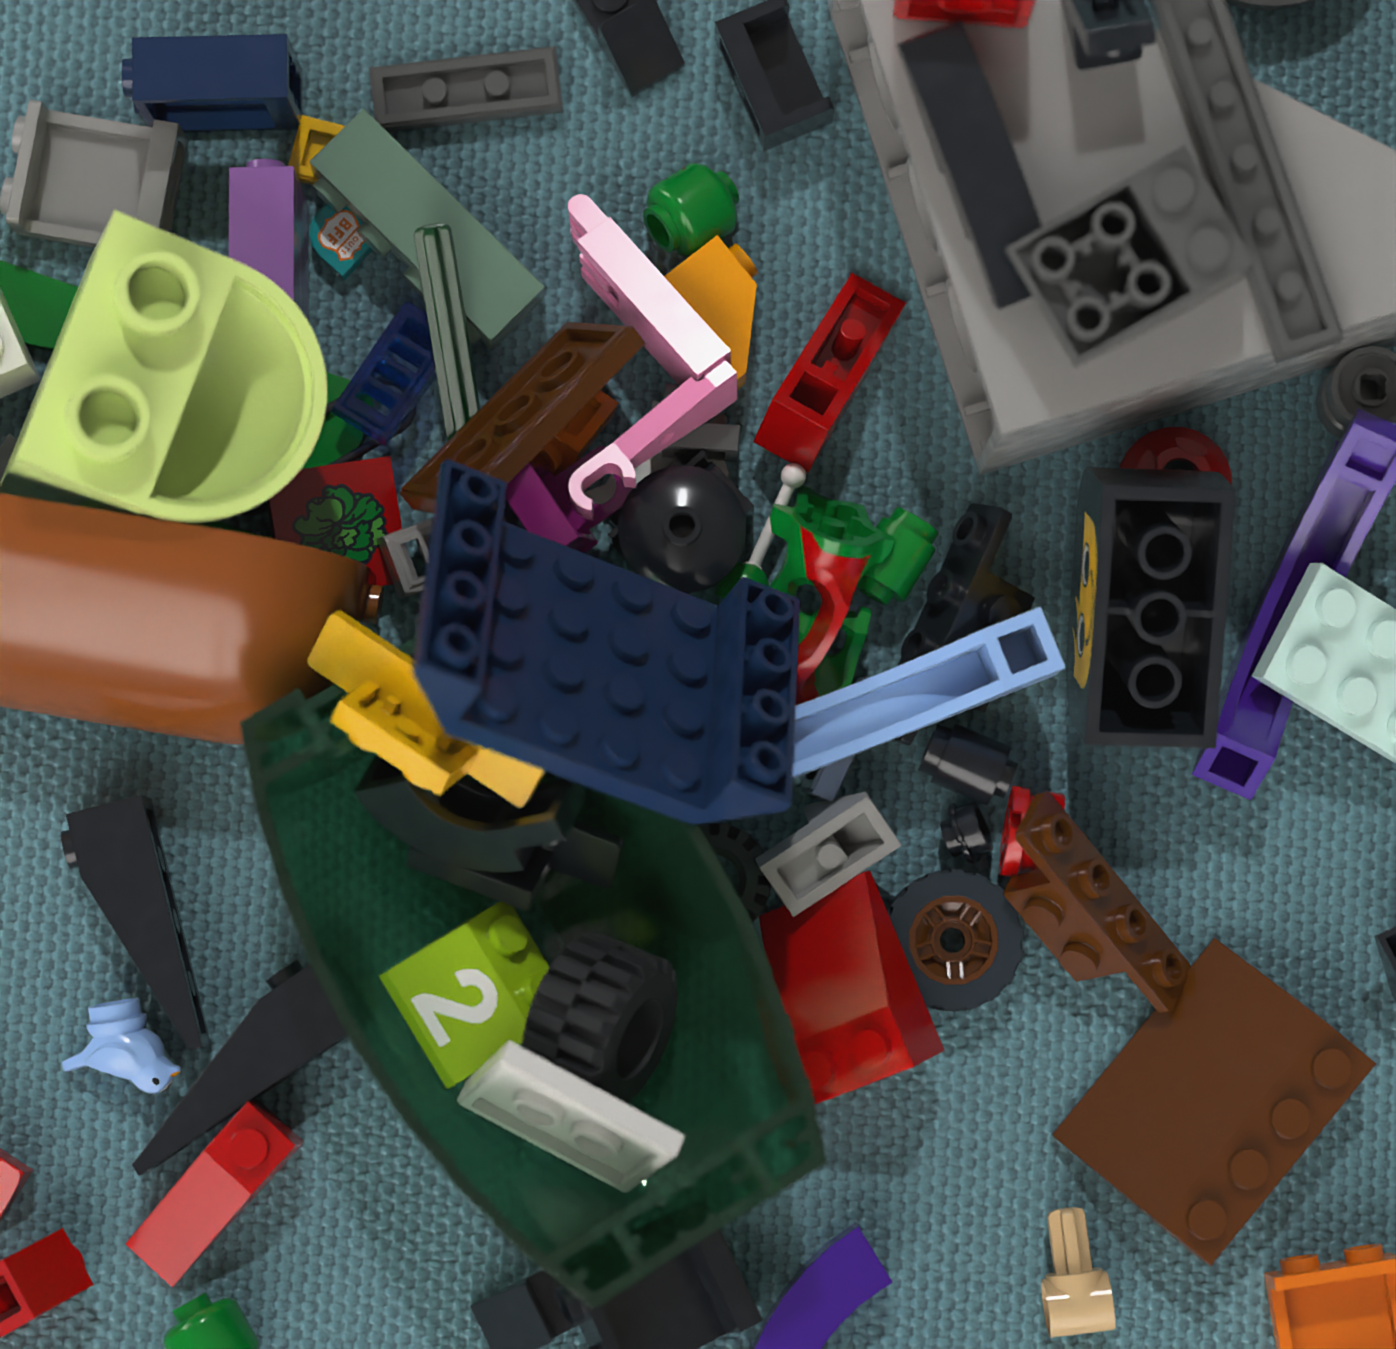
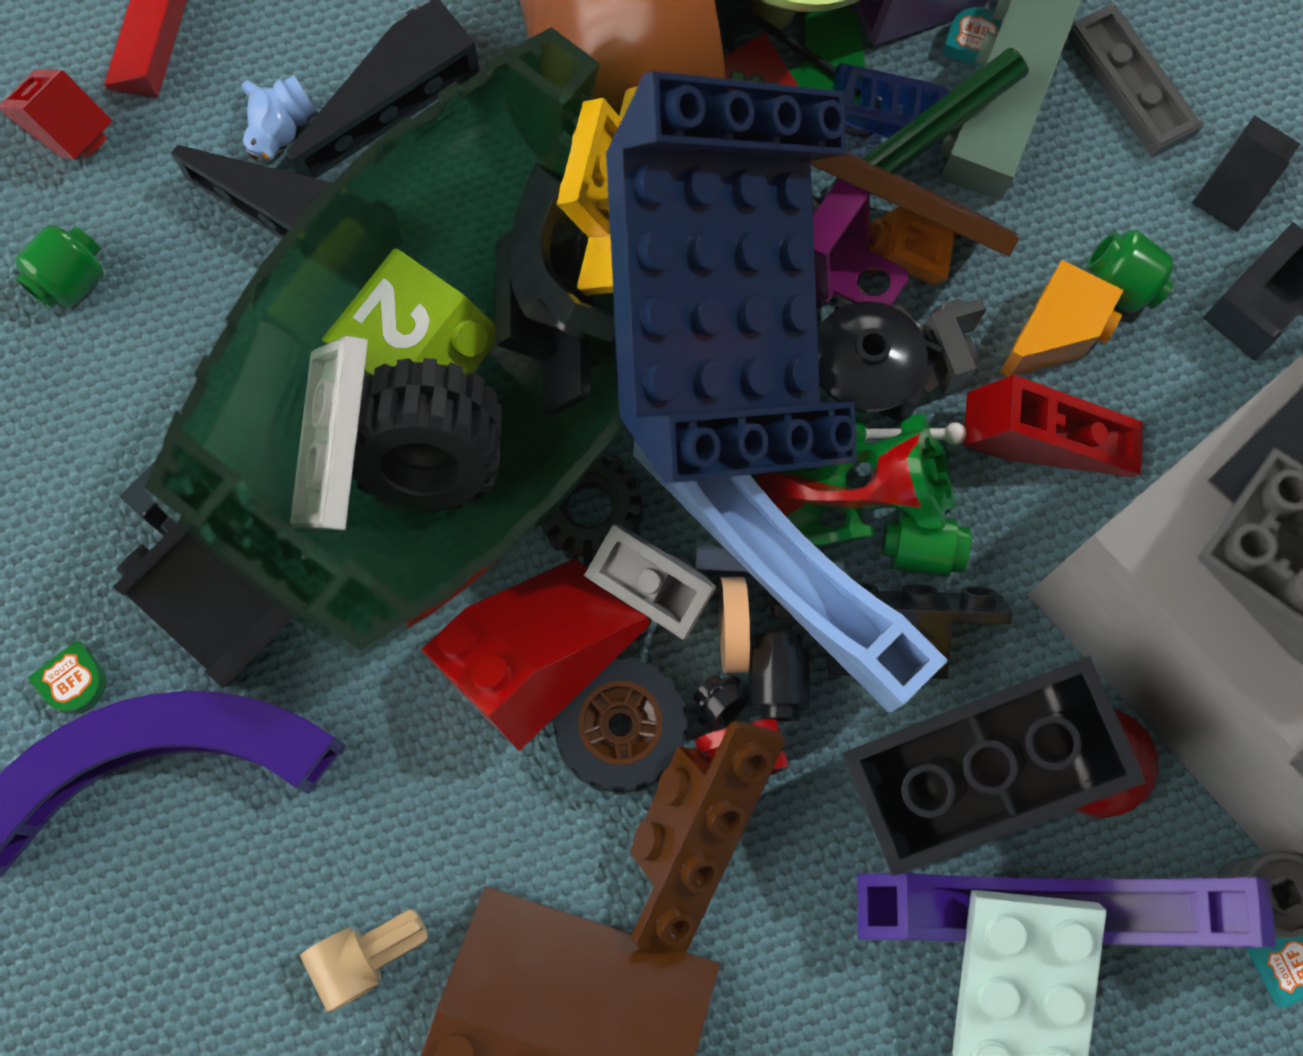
camera: 65 degrees right, 10 degrees down
(214, 1191) = (191, 225): slope -> none
(672, 336) = (1000, 320): bright pink hinge -> none
(901, 787) = (734, 625): none -> light nougat piece

